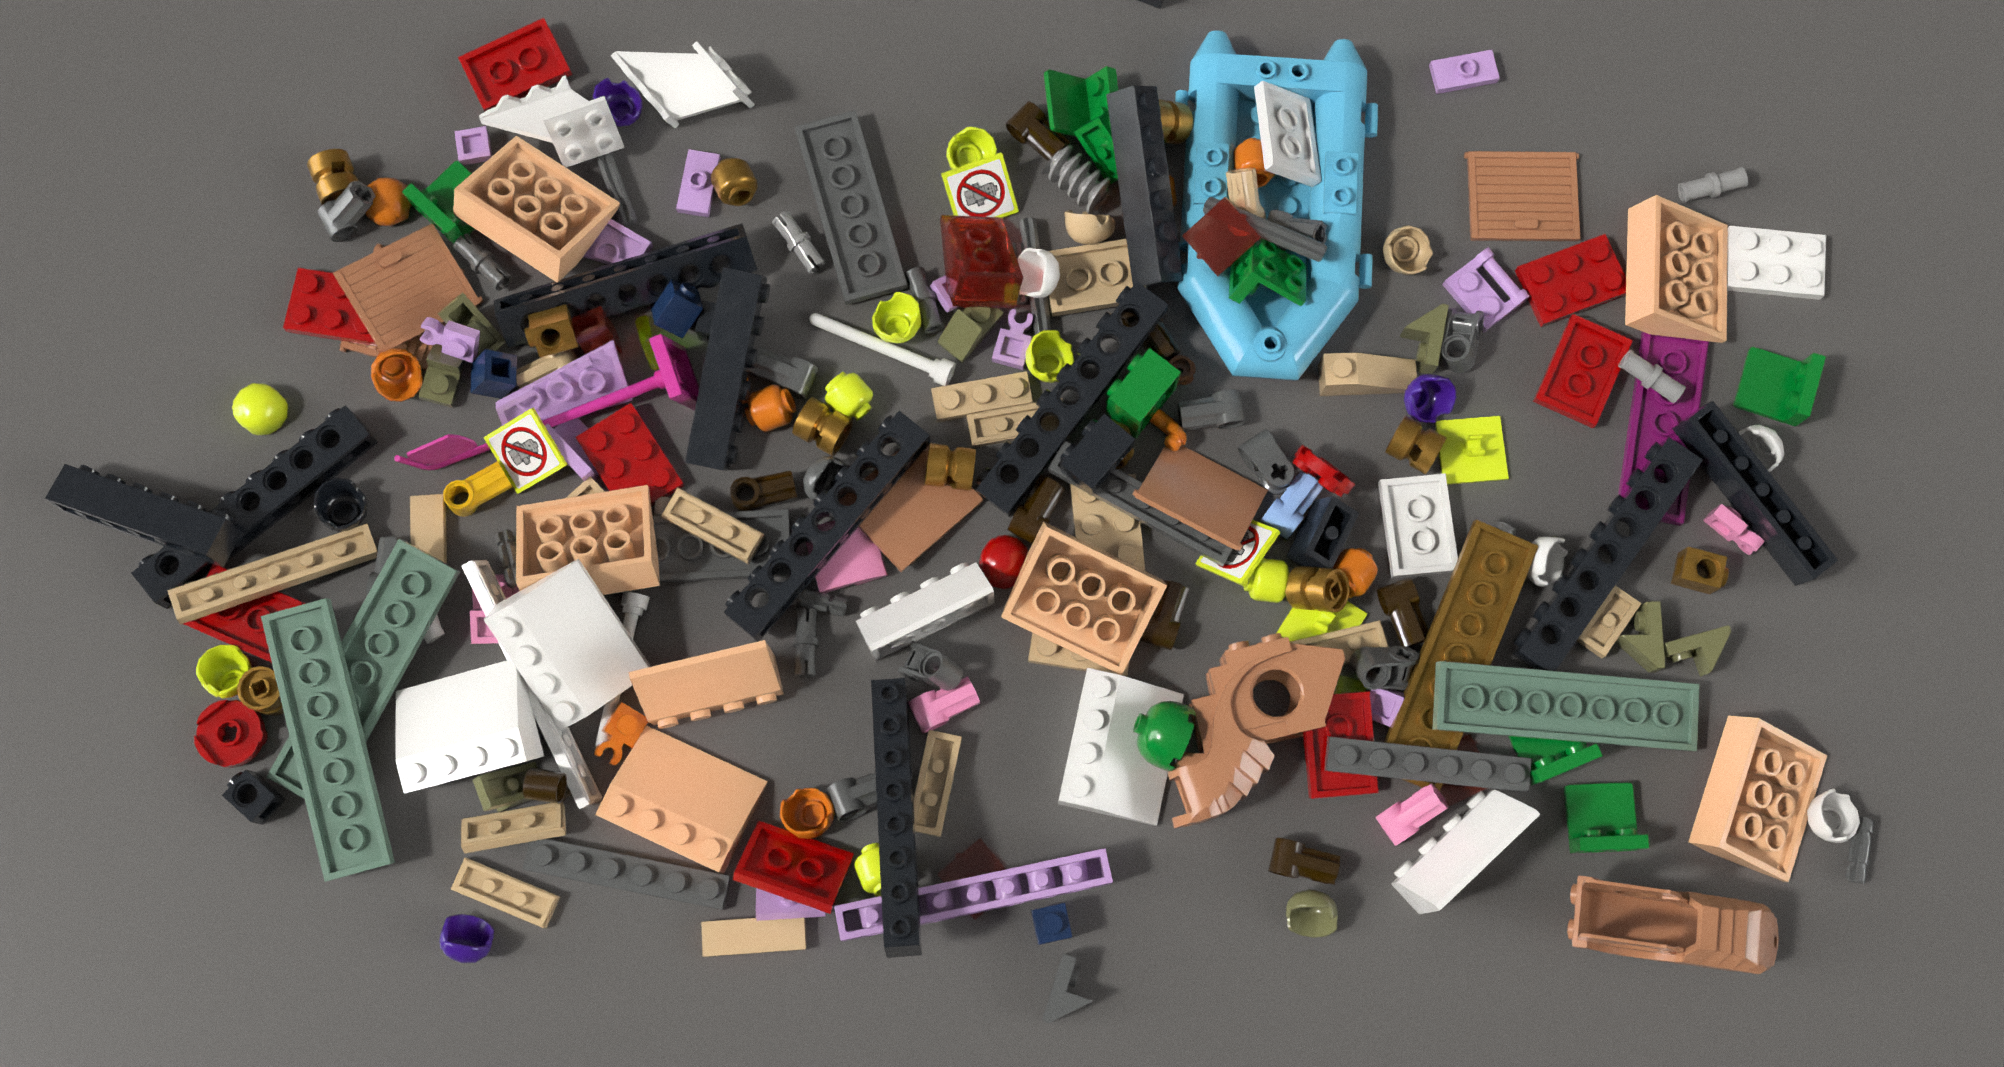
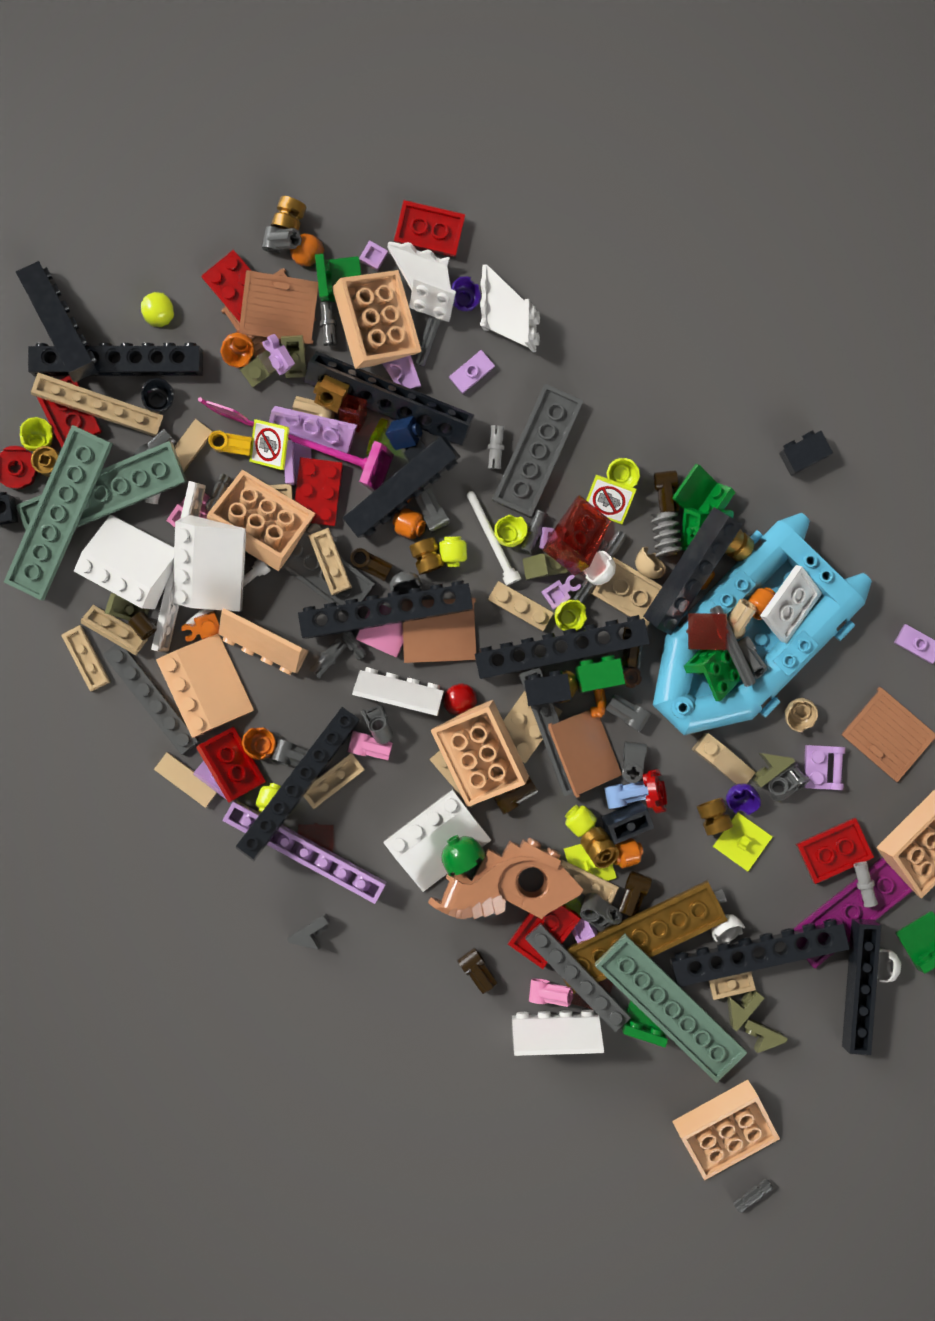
camera: 45 degrees right, 10 degrees up
(466, 938) = (49, 665): dark purple hair -> none
(493, 374) = (285, 390): dark blue brick -> none
(734, 181) = (489, 387): pearl gold head -> none
(950, 467) = (471, 631): pearl gold wheel -> none
(1001, 424) = (520, 629): tan tile -> none
(1036, 509) = (497, 688): dark brown piece -> none
(1051, 924) = (330, 896): dark blue brick -> none
(1242, 563) = (587, 800): piece -> none
(1311, 914) = (459, 998): olive hair -> none
(1418, 525) = (680, 857): white plate -> none
(1572, 280) = (873, 800): red plate -> none
(1602, 818) = (640, 1075): green bracket -> none
(1673, 926) = (624, 1155): nougat animal -> none
(1686, 574) = (796, 990): pearl gold brick -> none
(1730, 526) = (836, 990): bright pink plate -> none
(1833, 817) = (754, 1170): white hair -> none

